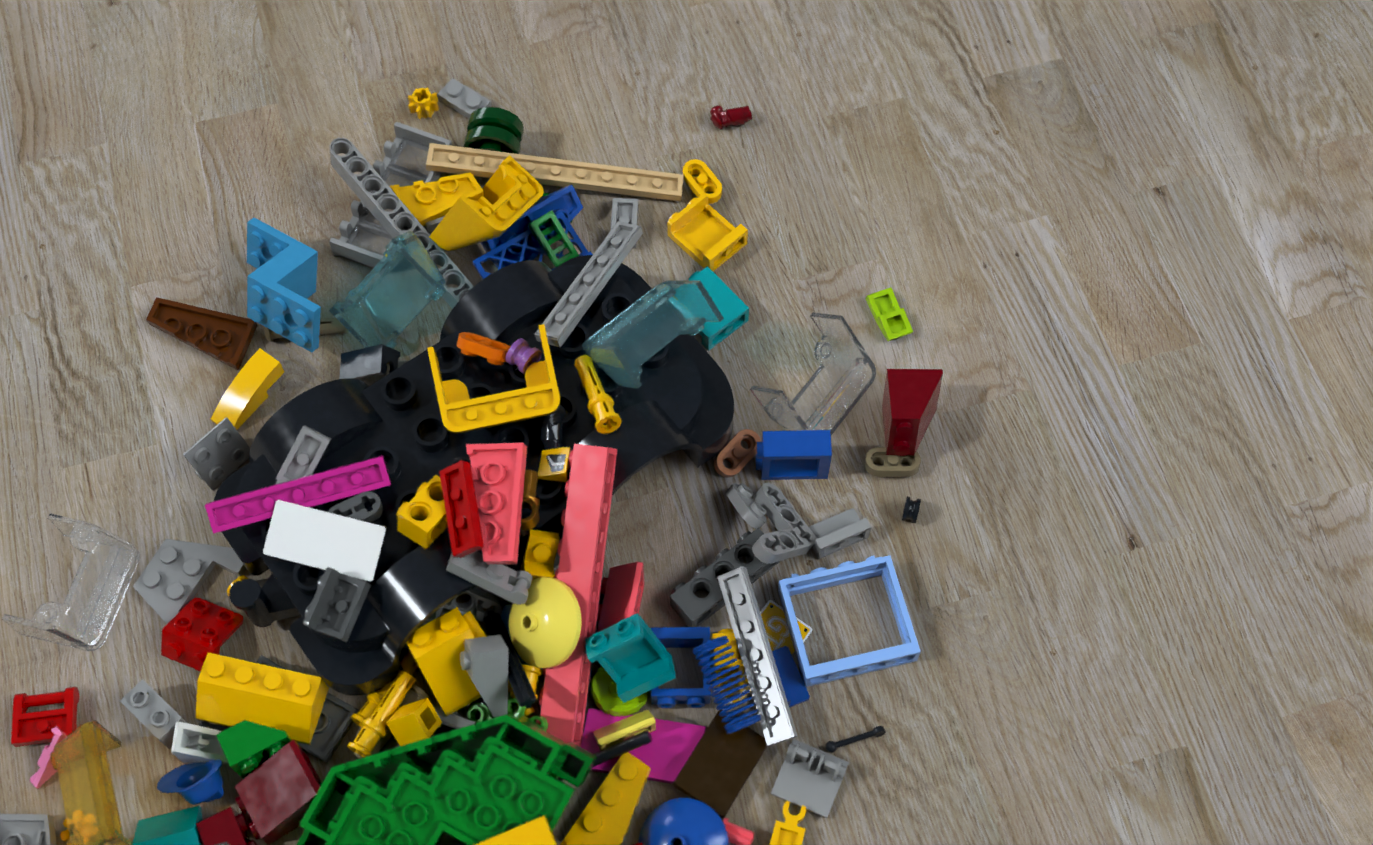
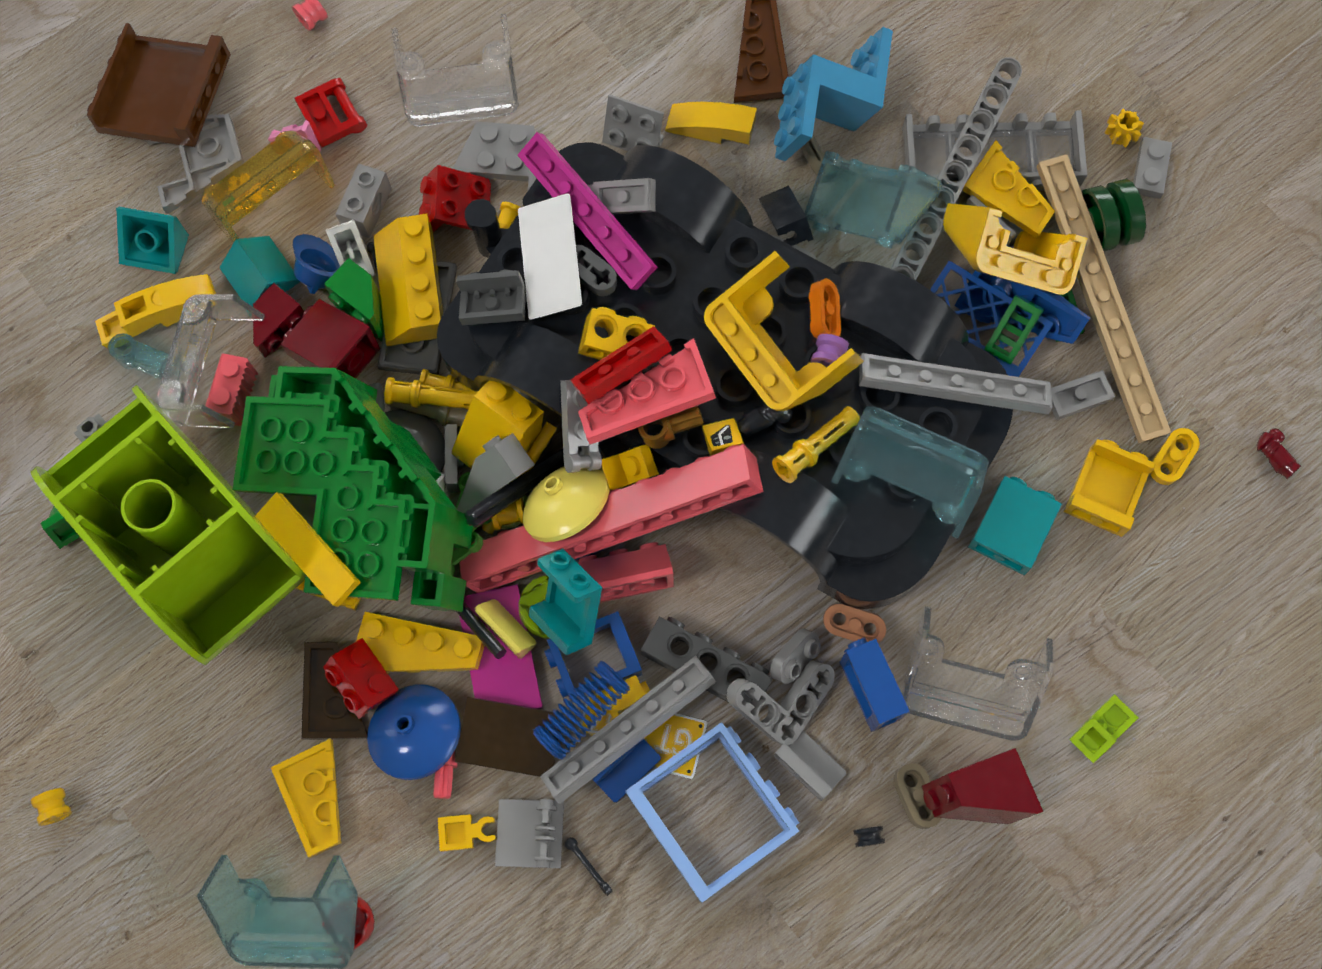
camera: 70 degrees right, 10 degrees up
(414, 722) = (431, 427): yellow brick -> none

